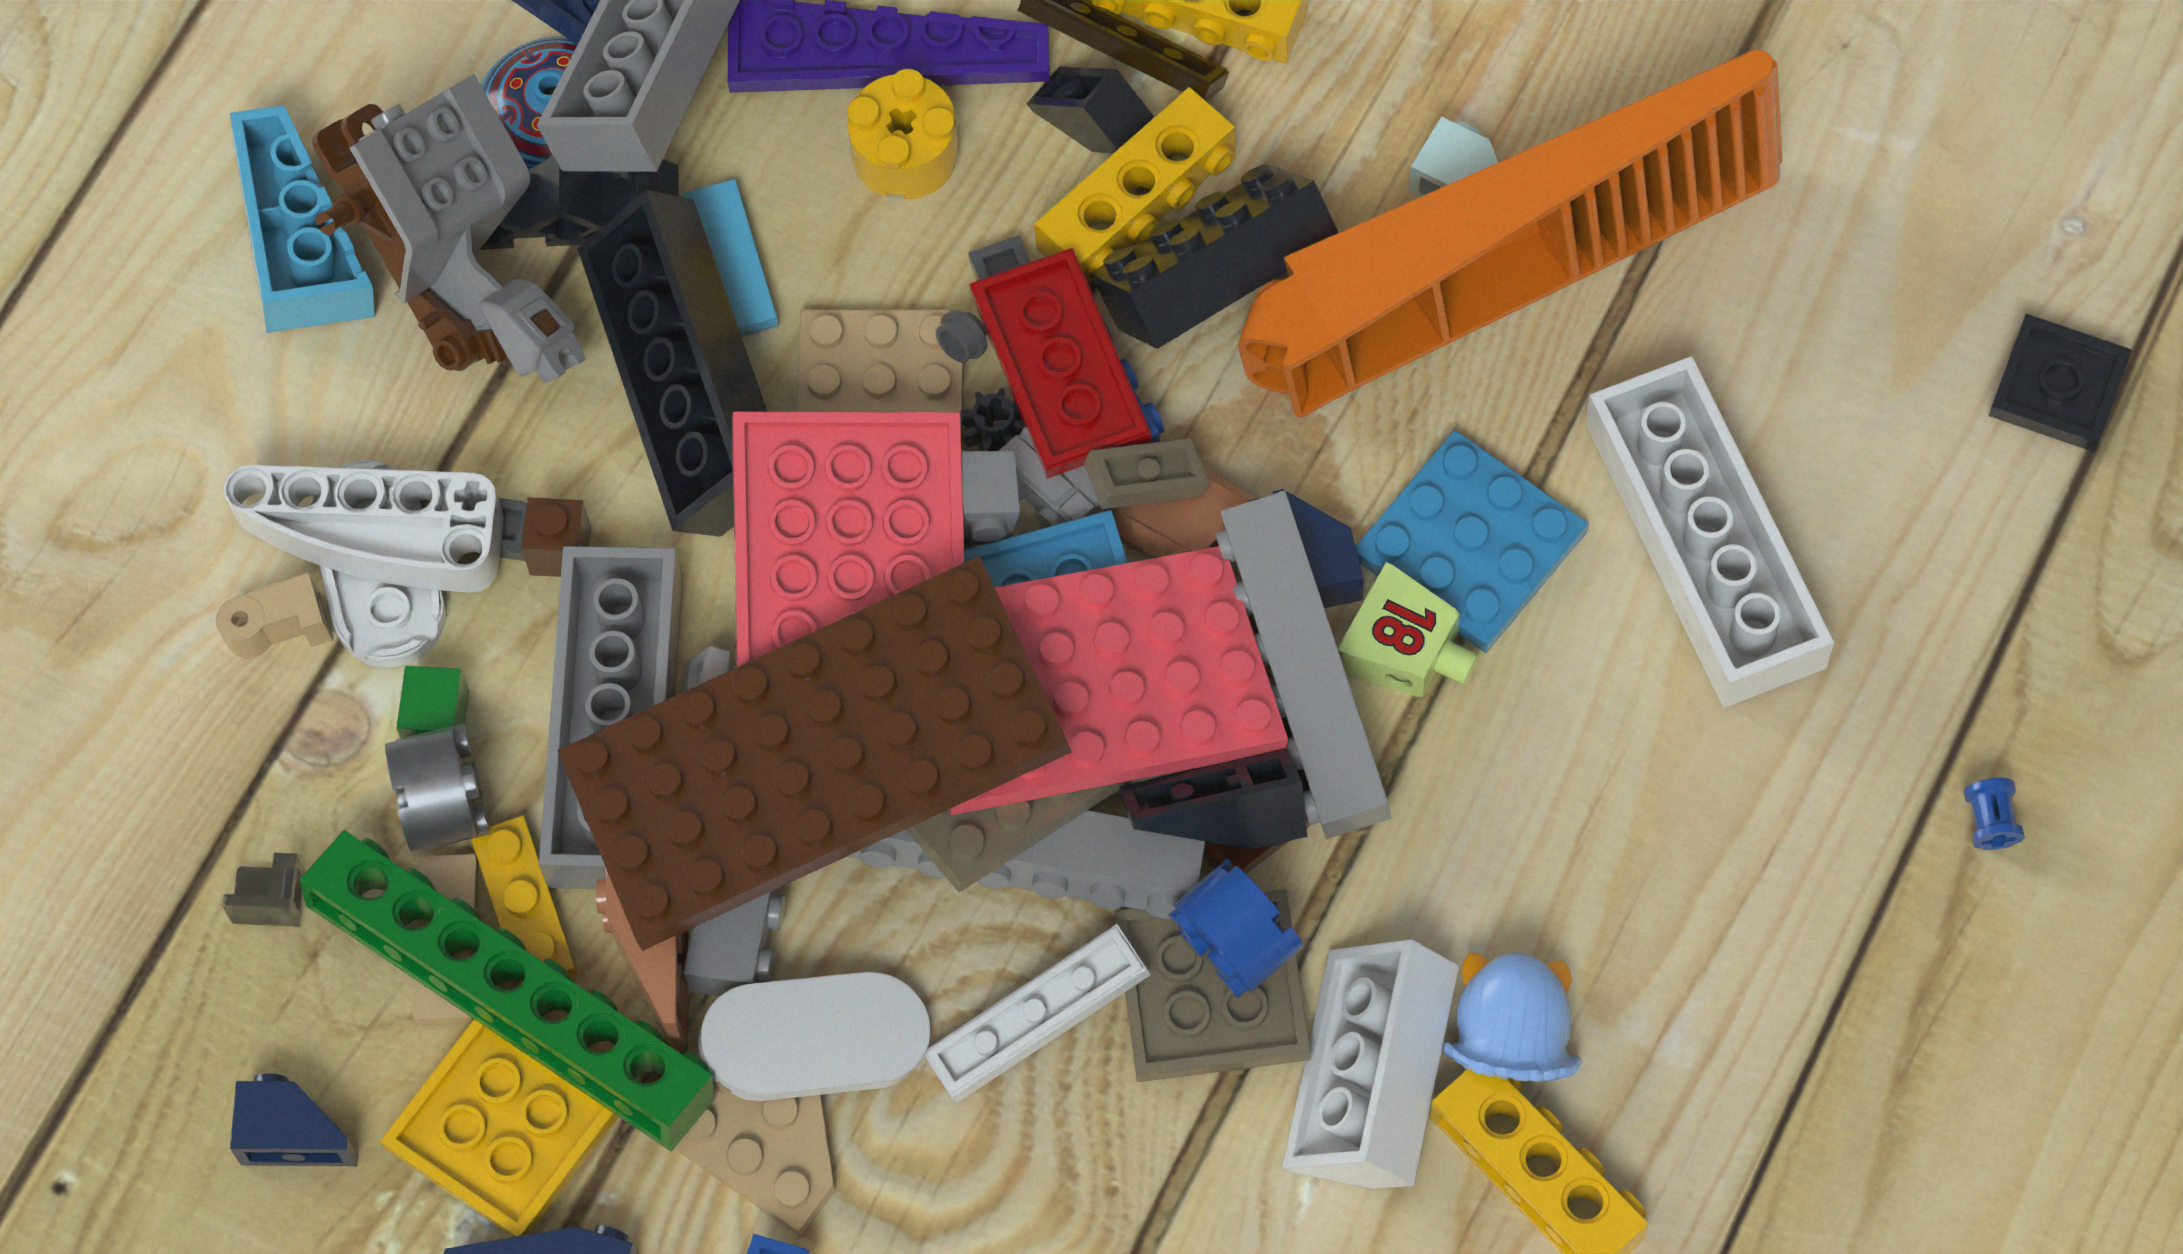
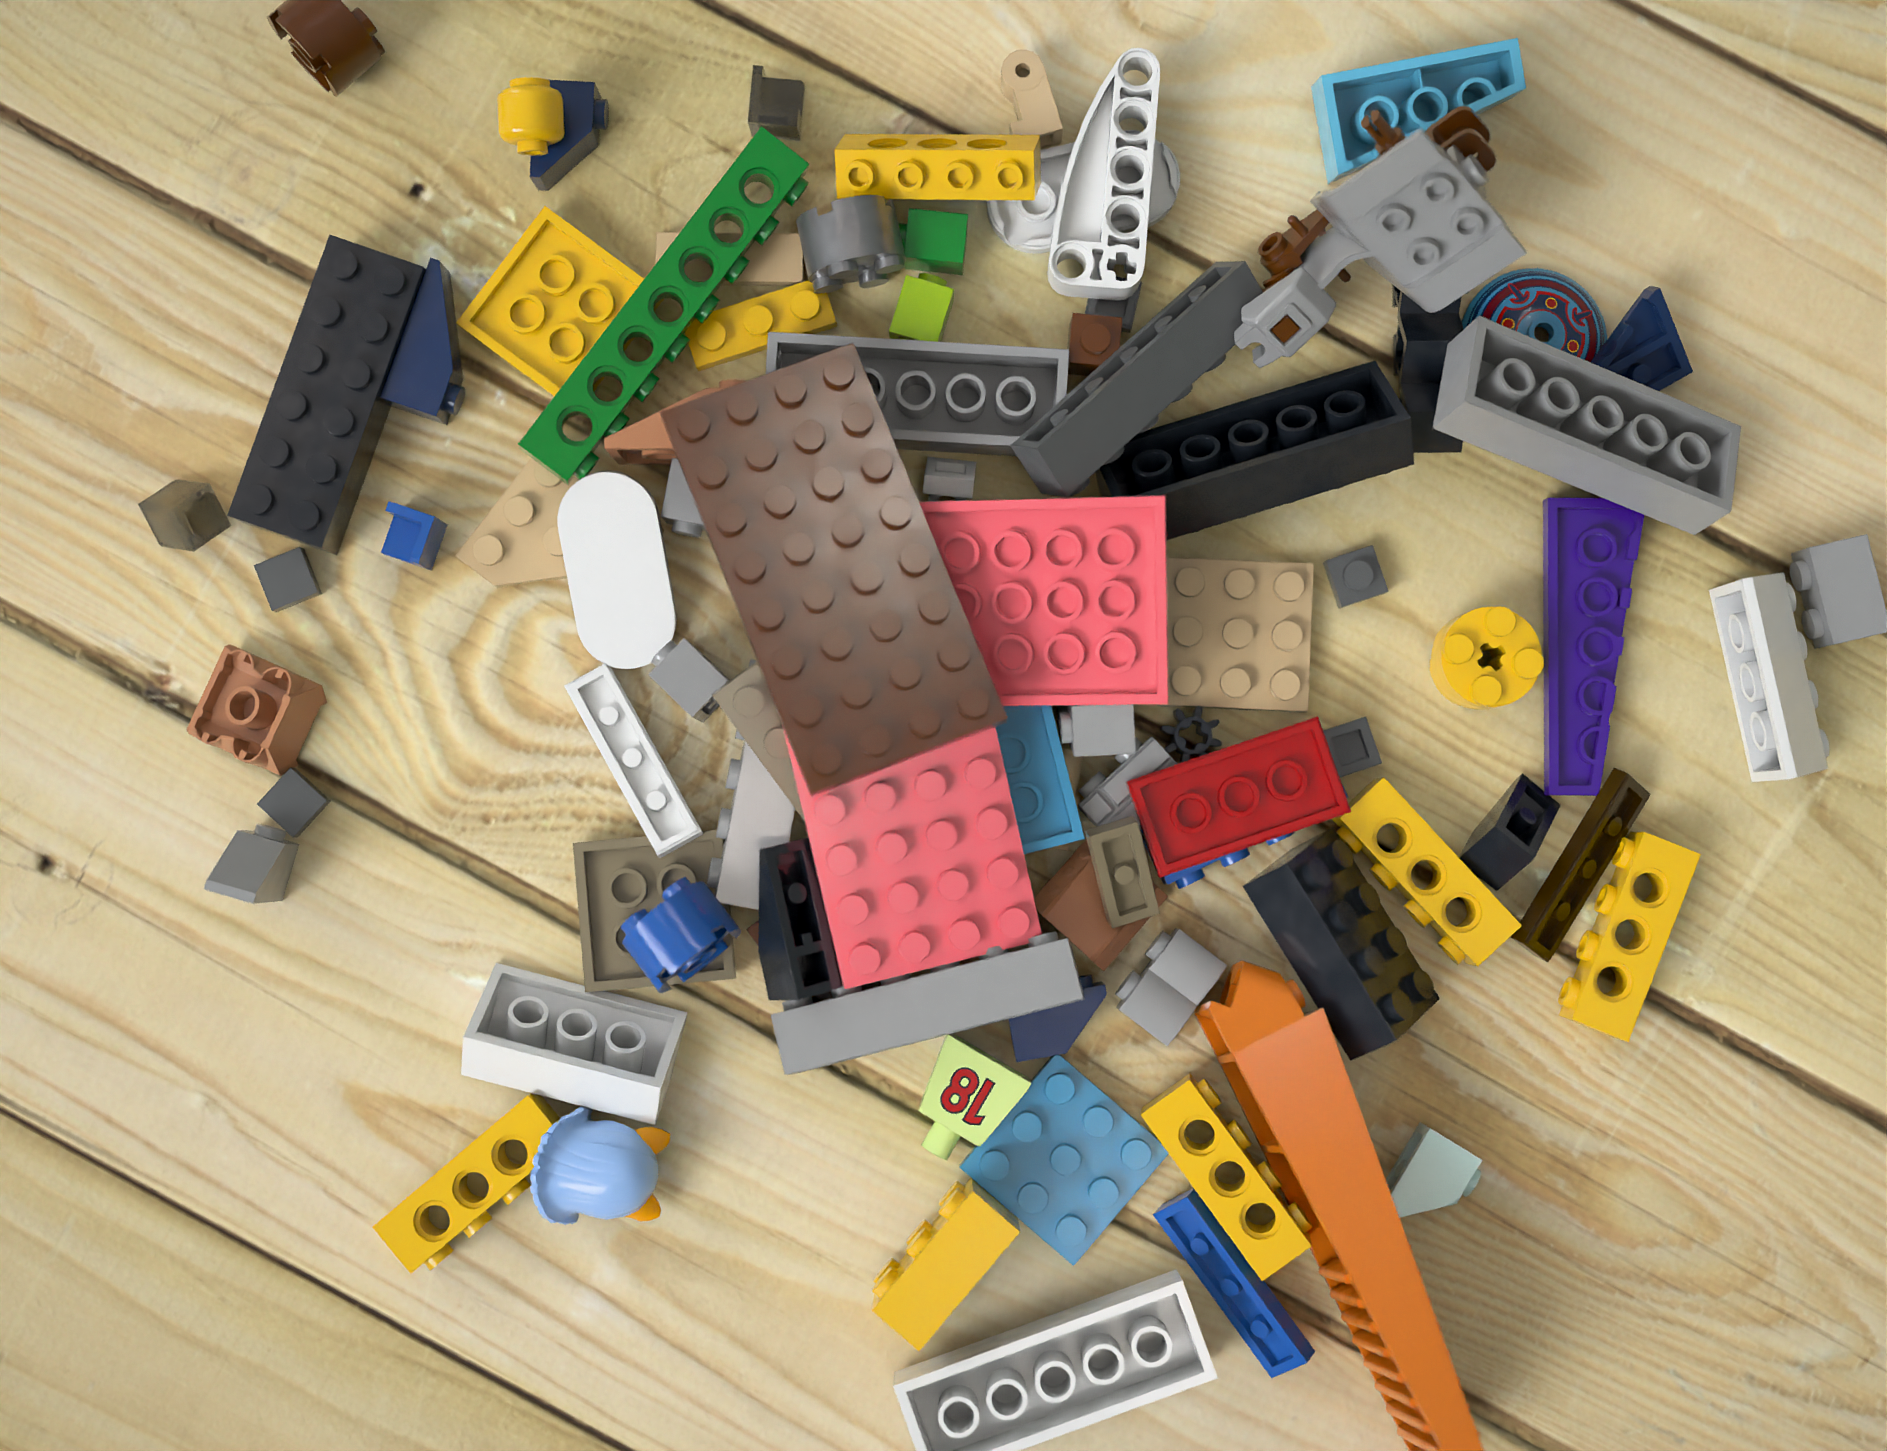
camera: 90 degrees right, 20 degrees up
(278, 1134) = (530, 115): none -> yellow head
(349, 698) = (938, 166): none -> yellow brick
(512, 720) = (922, 309): none -> lime brick
(599, 472) = (1137, 382): none -> dark grey brick
(735, 255) = (1372, 502): medium azure tile -> none
(814, 271) = (1355, 576): none -> dark grey plate
(942, 939) = (688, 678): none -> light grey brick
(962, 336) = (1271, 708): dark grey plate -> none
(1272, 435) = (1170, 985): none -> light grey brick
(1418, 428) = (1263, 1246): none -> yellow brick
(1589, 642) = (943, 1262): none -> yellow brick
(1593, 360) = (1234, 1284): none -> blue plate

